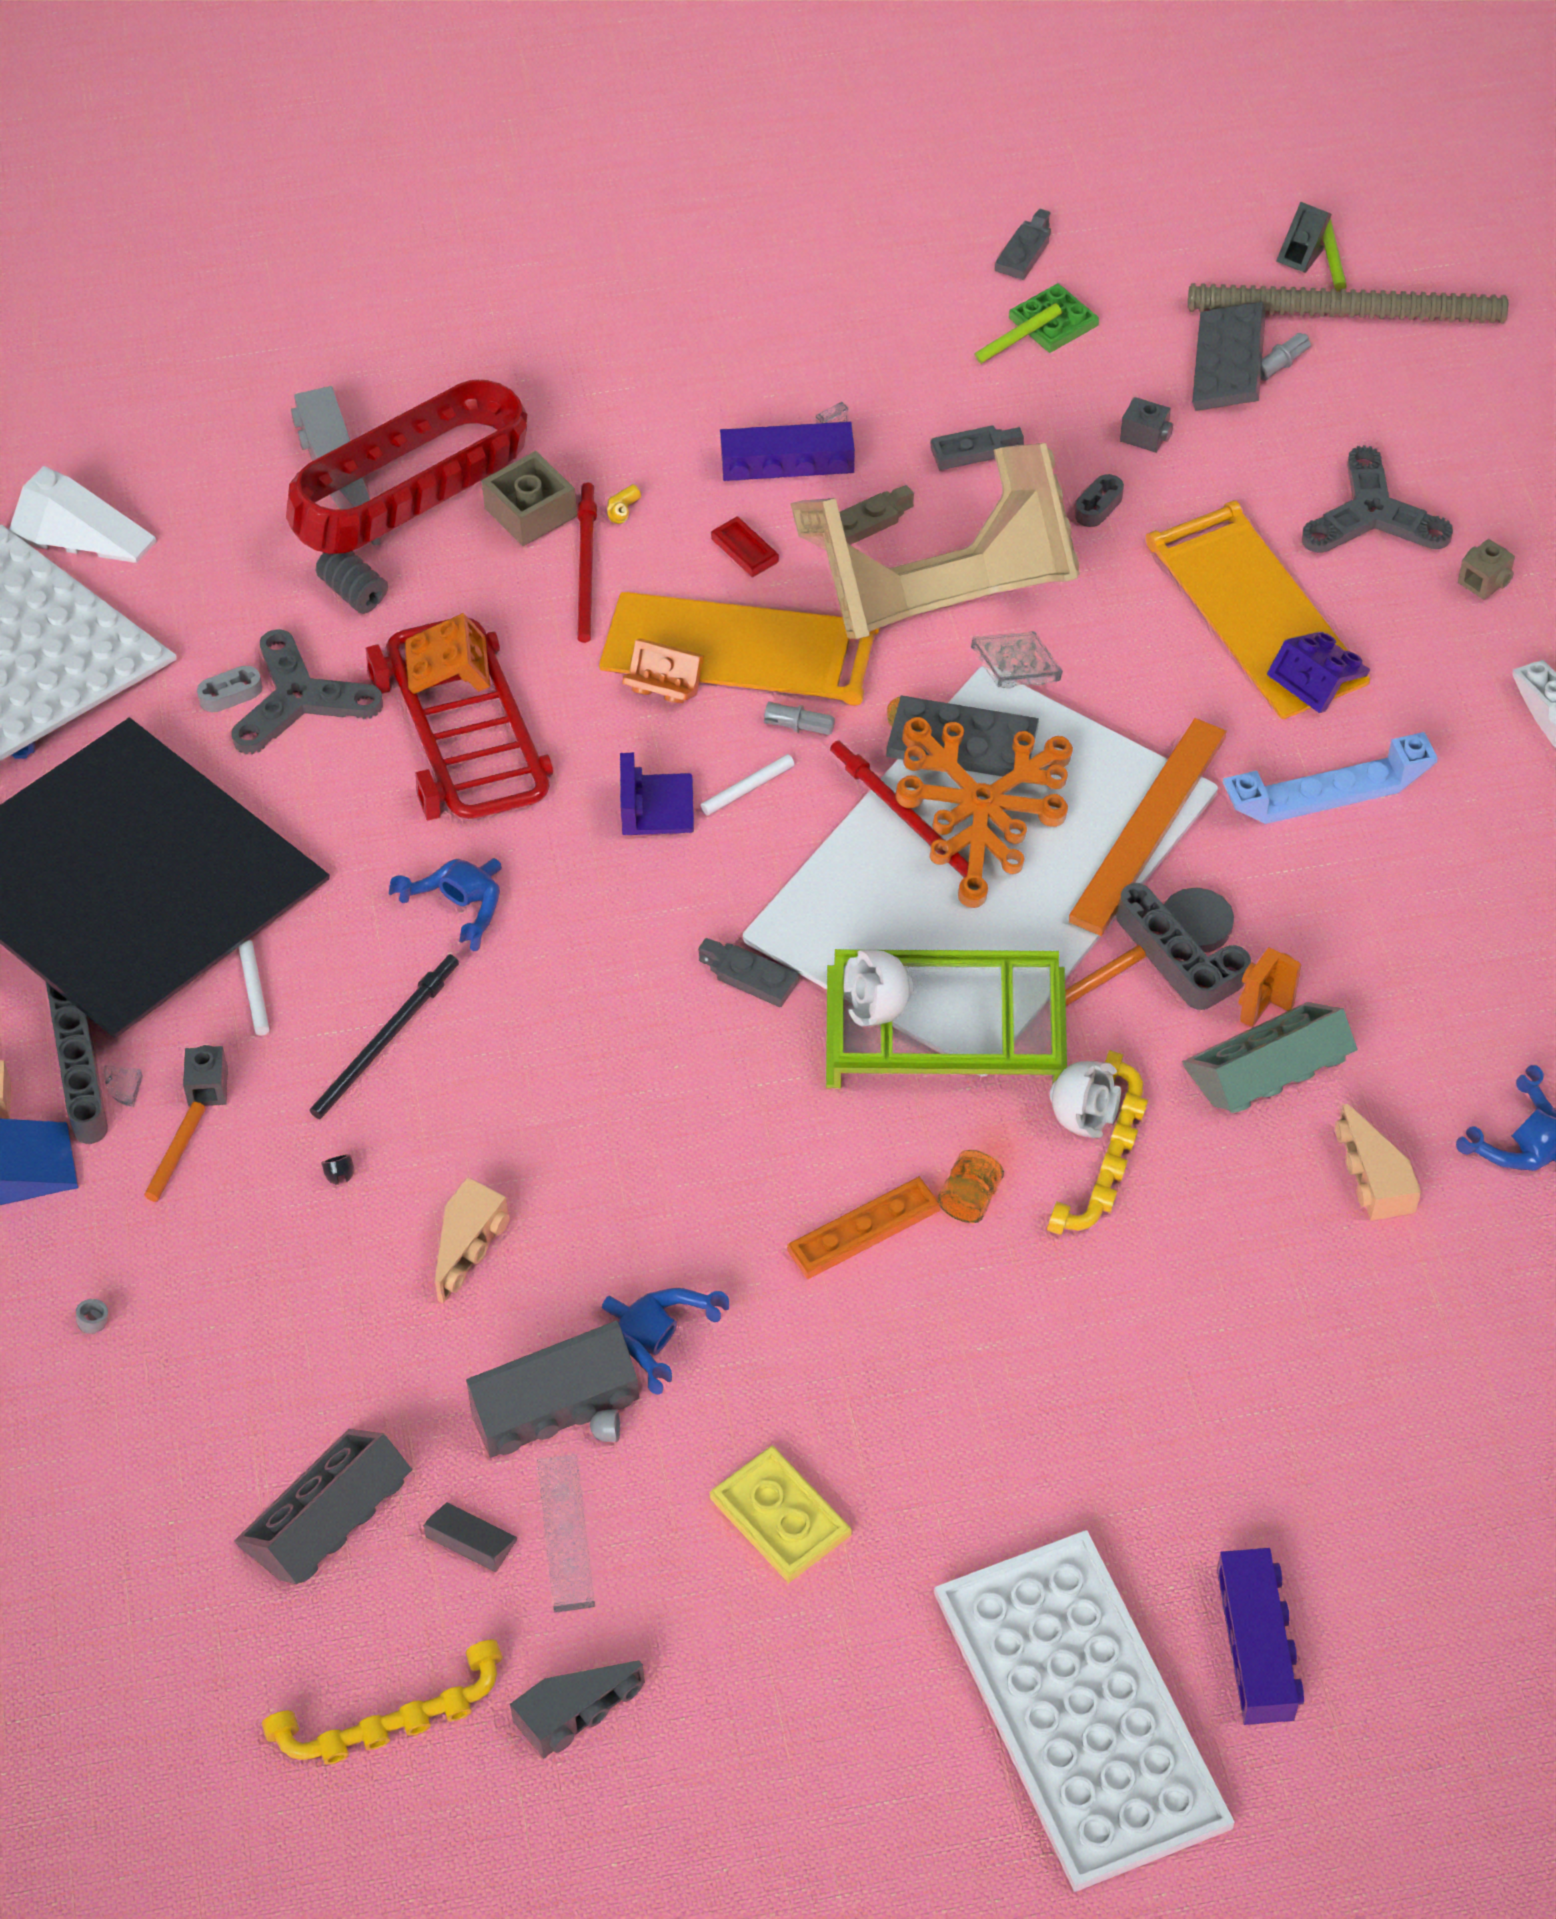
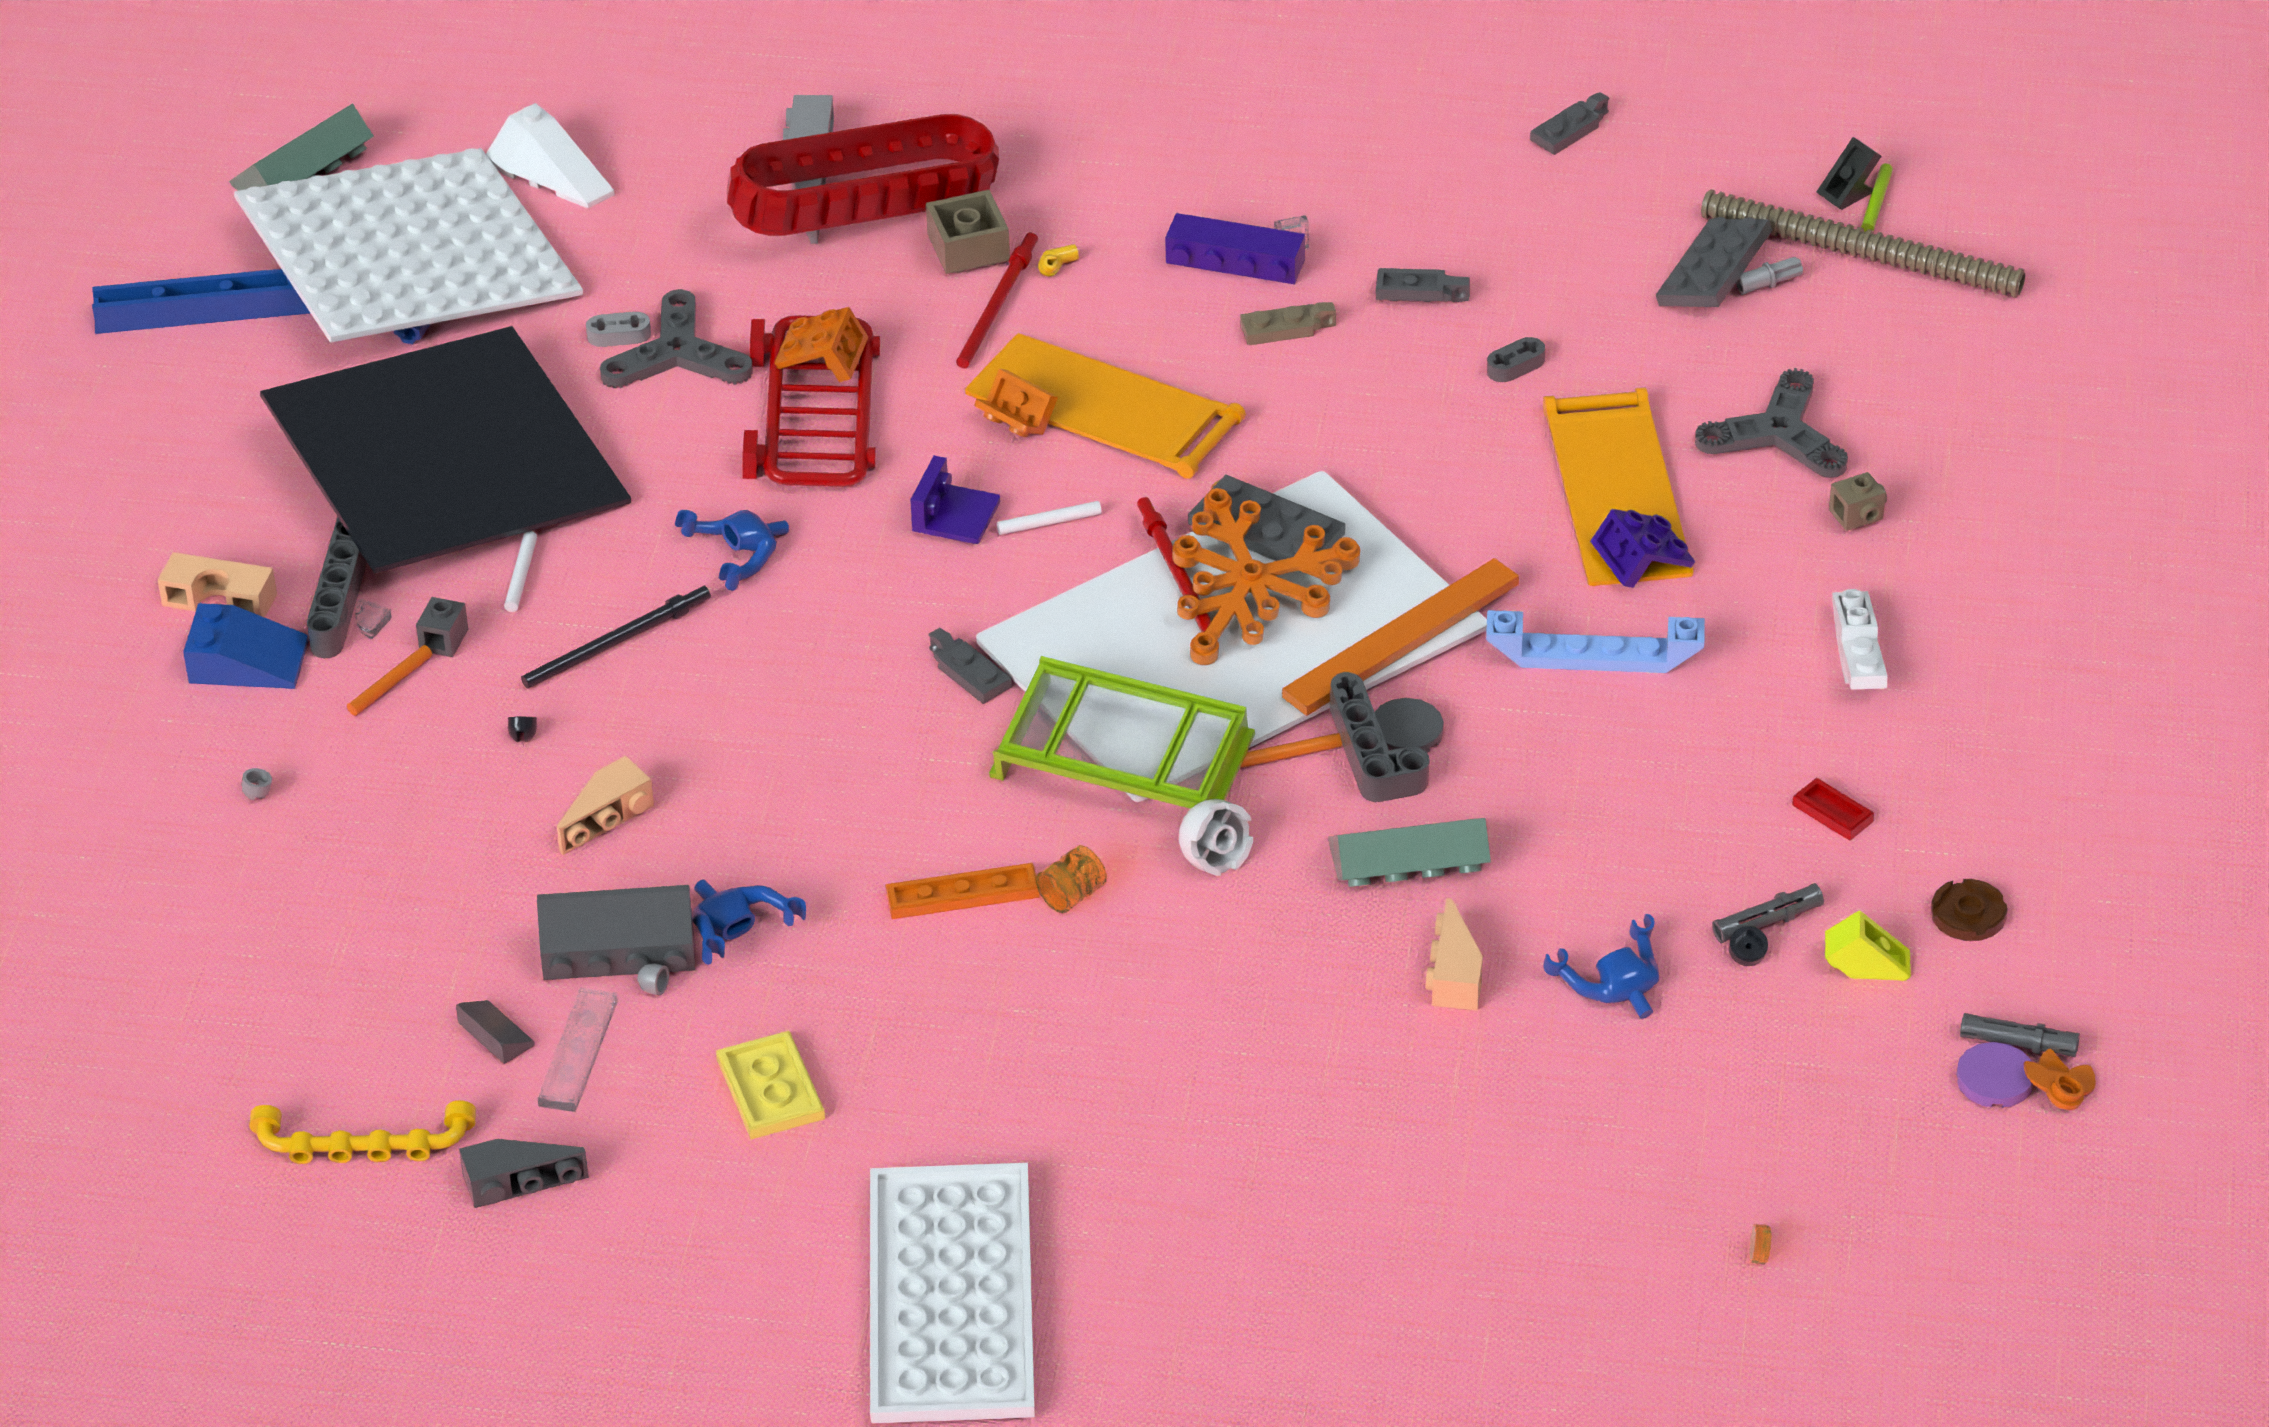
camera: 20 degrees right, 10 degrees down
(325, 1505) = (383, 972): dark grey slope -> none
(352, 580) = (771, 263): dark grey piece -> none
(745, 546) = (1154, 321): red tile -> none
(798, 718) = (1124, 474): light grey axle -> none
(877, 987) = (1059, 689): white cylinder -> none
(1016, 659) = (1353, 471): clear tile -> none
(1017, 547) = (1241, 381): tan panel -> none
(1018, 333) = (1515, 196): lime bar -> none
(1071, 324) = (1563, 193): bright green tile -> none
(1113, 1165) = (1214, 897): yellow bar -> none
(1146, 425) = (1596, 303): dark grey brick -> none
(1258, 1636) = (1136, 1281): dark purple brick -> none
(1269, 981) = (1431, 787): orange bracket -> none

